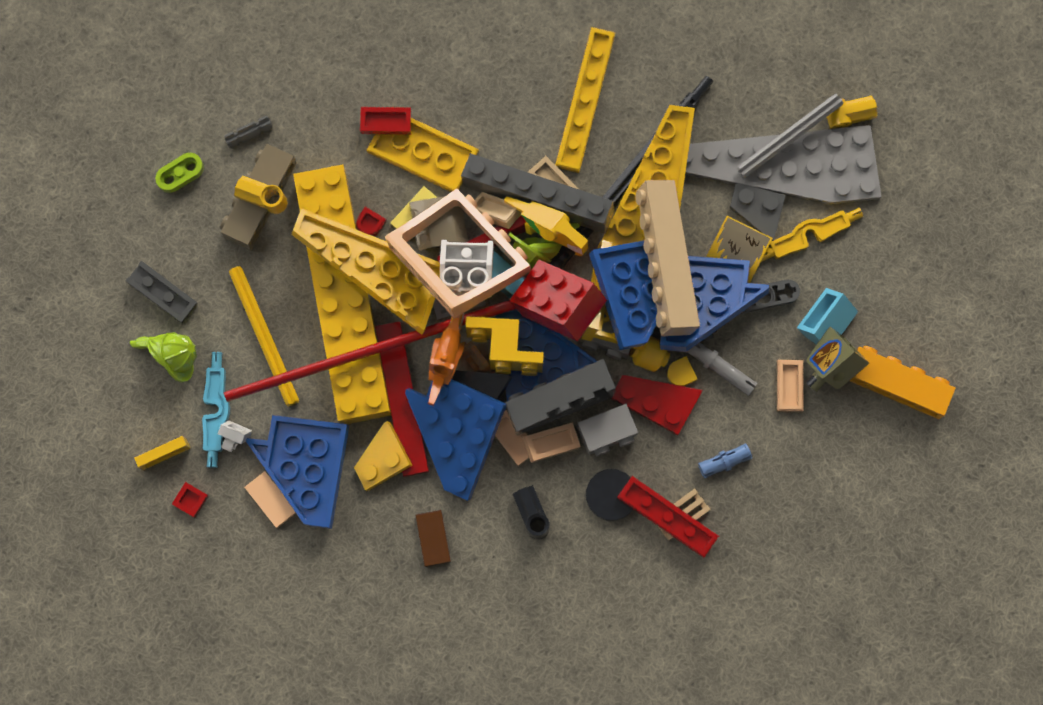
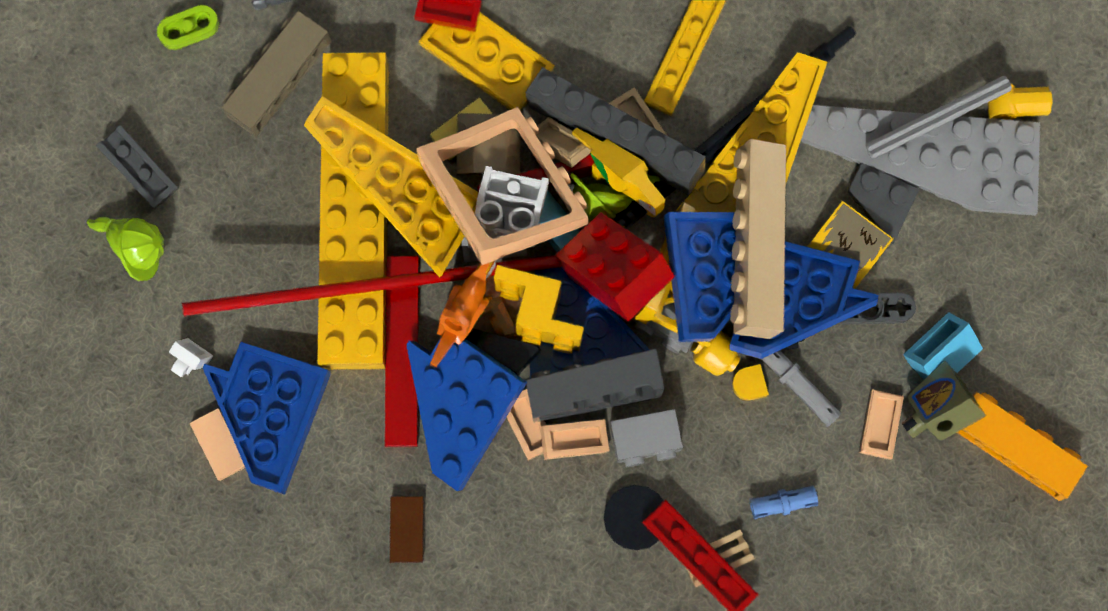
camera: 10 degrees right, 0 degrees up
(162, 453) = (98, 362): yellow tile -> none
(190, 499) = (121, 426): red tile -> none
(214, 396) = (178, 292): medium azure piece -> none
(259, 194) = (277, 70): yellow piece -> none
(262, 333) = (249, 239): yellow axle -> none
(370, 222) = (405, 129): red tile -> none
(382, 458) = (363, 419): yellow wing -> none
(531, 510) = (533, 518): black piece -> none
(657, 401) = (714, 413): red wing -> none
(820, 228) = (956, 240): yellow piece -> none

